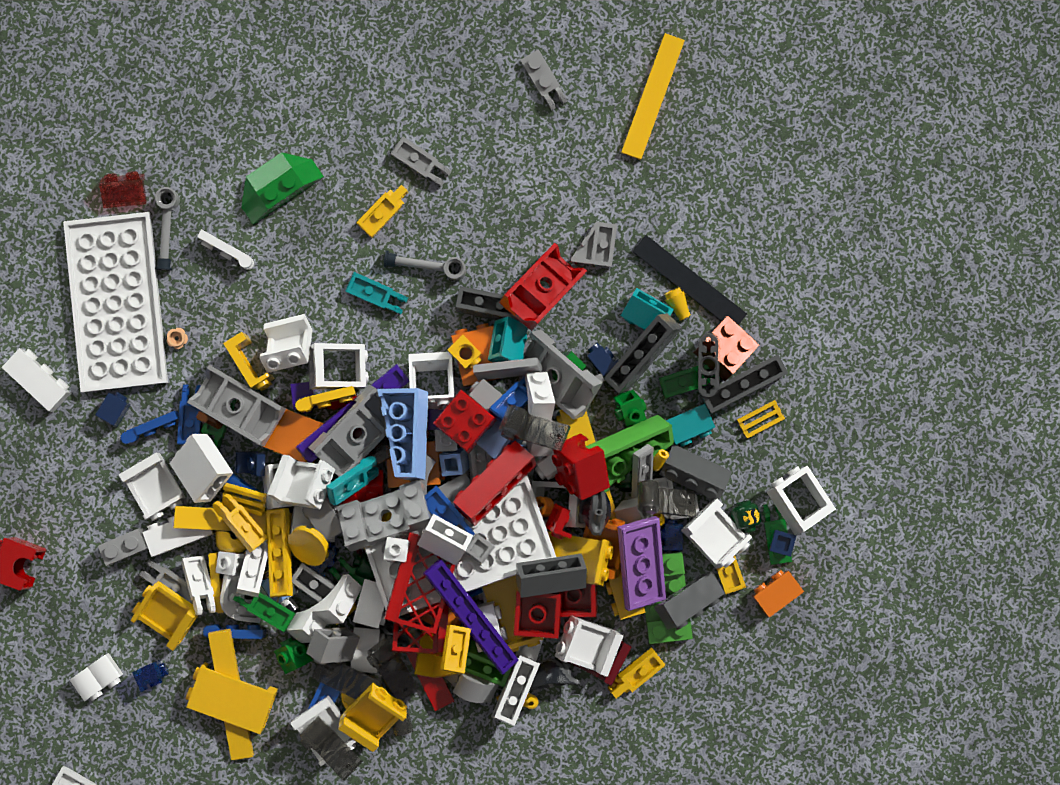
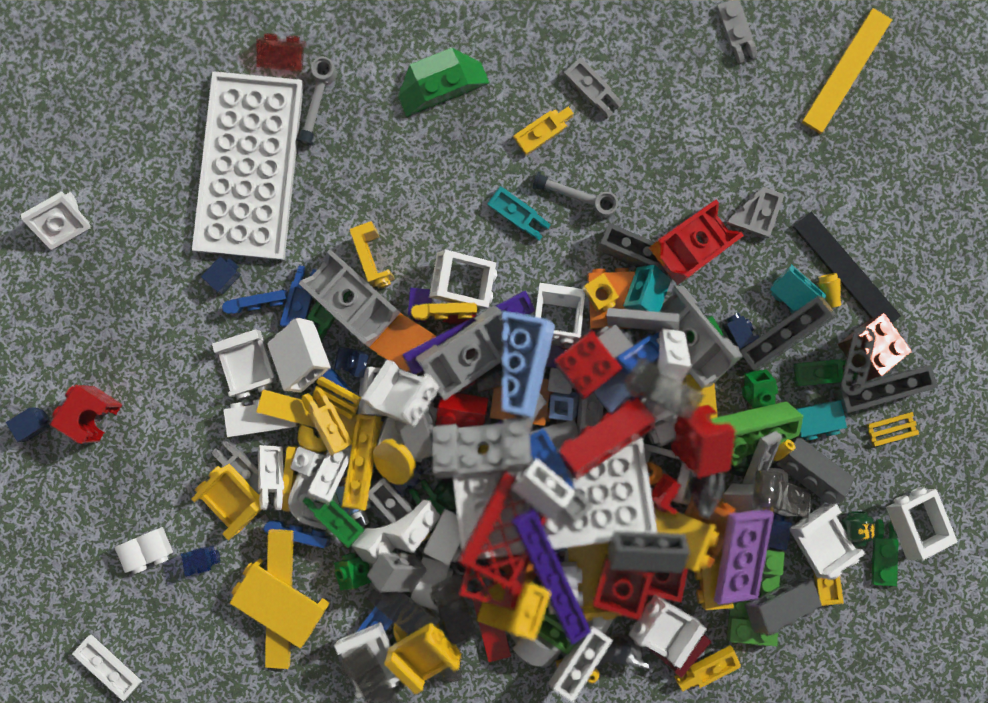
camera: 20 degrees right, 0 degrees up
(37, 379) = (150, 227): white brick -> none
(123, 547) = (200, 420): light grey brick -> none
(177, 344) = (298, 212): light nougat plate -> none
(203, 417) = (314, 304): reddish brown tile -> none
(227, 250) = (373, 137): white plate -> none
(287, 343) = (416, 244): white panel -> none
(352, 480) = (455, 403): teal hinge -> none
(396, 550) = (488, 488): white bracket -> none
(777, 592) = (875, 616): orange brick -> none
(782, 543) = (894, 565): dark blue plate -> none

